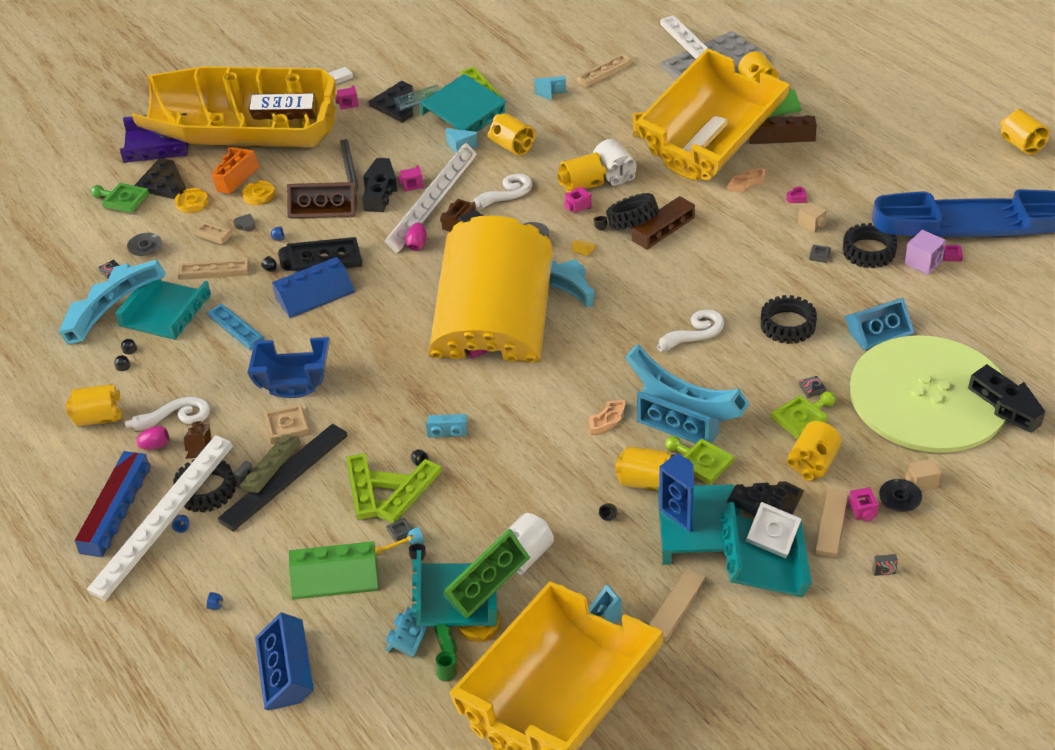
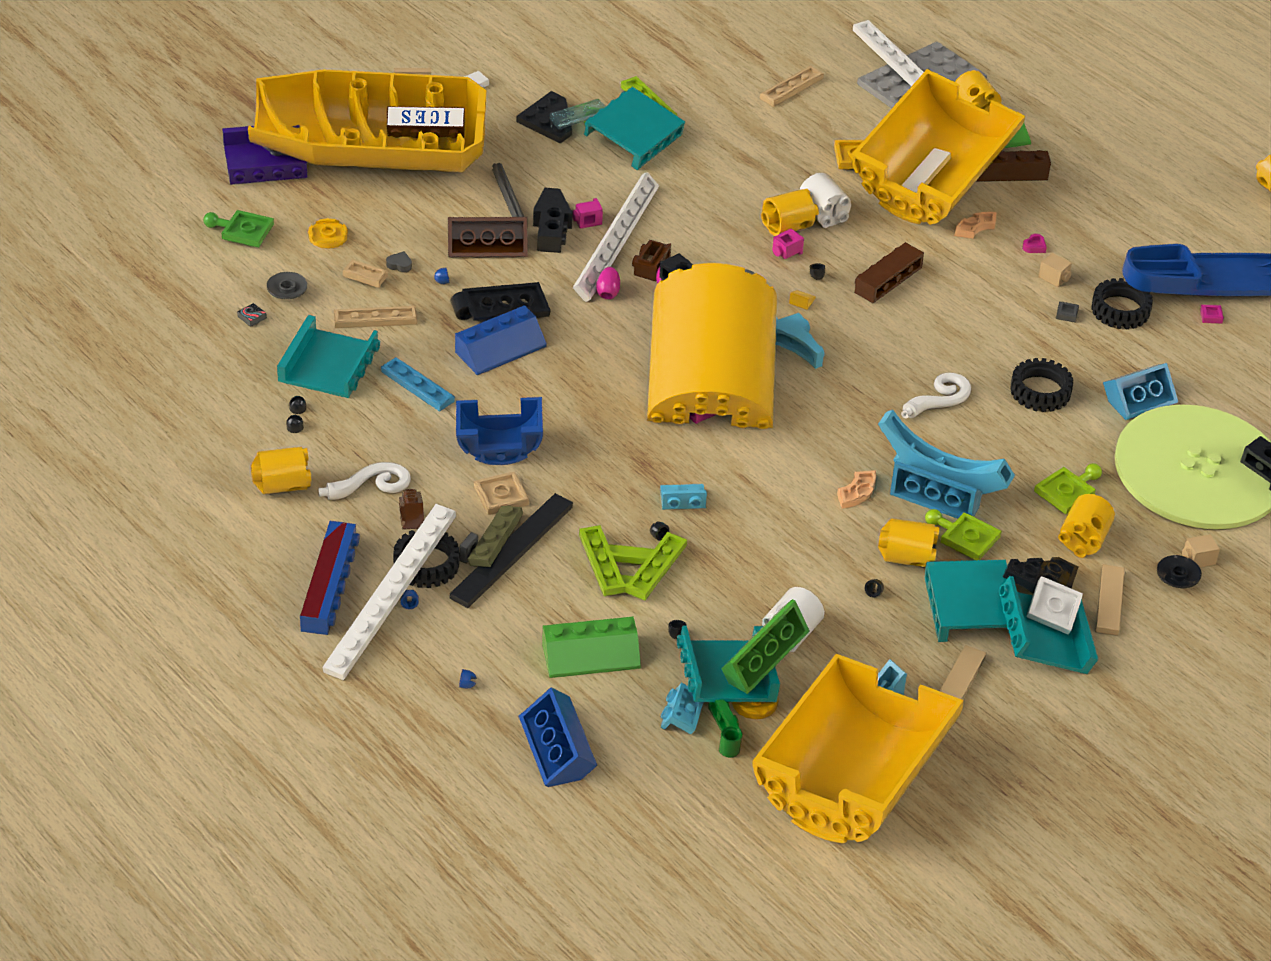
camera: 10 degrees left, 0 degrees up
(103, 295) = (278, 329): medium azure arch -> none
(153, 438) = (356, 508): dark pink animal -> none
(163, 179) = (287, 207): black plate -> none
(234, 169) = (375, 196): orange wedge -> none
(258, 193) = (407, 226): yellow tile -> none
(269, 264) = (441, 312): black hinge -> none
(347, 98) = (494, 111): dark pink brick -> none
(399, 529) = (653, 607): dark grey tile -> none
(413, 537) = (670, 613): hinge -> none
(456, 138) = (634, 166): medium azure slope -> none
(487, 198) = (710, 232): white plant -> none
(511, 134) = (699, 163): yellow cylinder -> none
(547, 86) = (730, 104): medium azure slope -> none
(632, 211) = (854, 258): black tyre -> none
(677, 490) = (956, 564): blue slope -> none
(812, 386) = (1074, 458): dark grey tile -> none
(863, 509) = (1144, 585): dark pink brick -> none
(885, 565) = (1169, 641): dark grey tile -> none
(925, 252) = (1183, 312): lavender head -> none

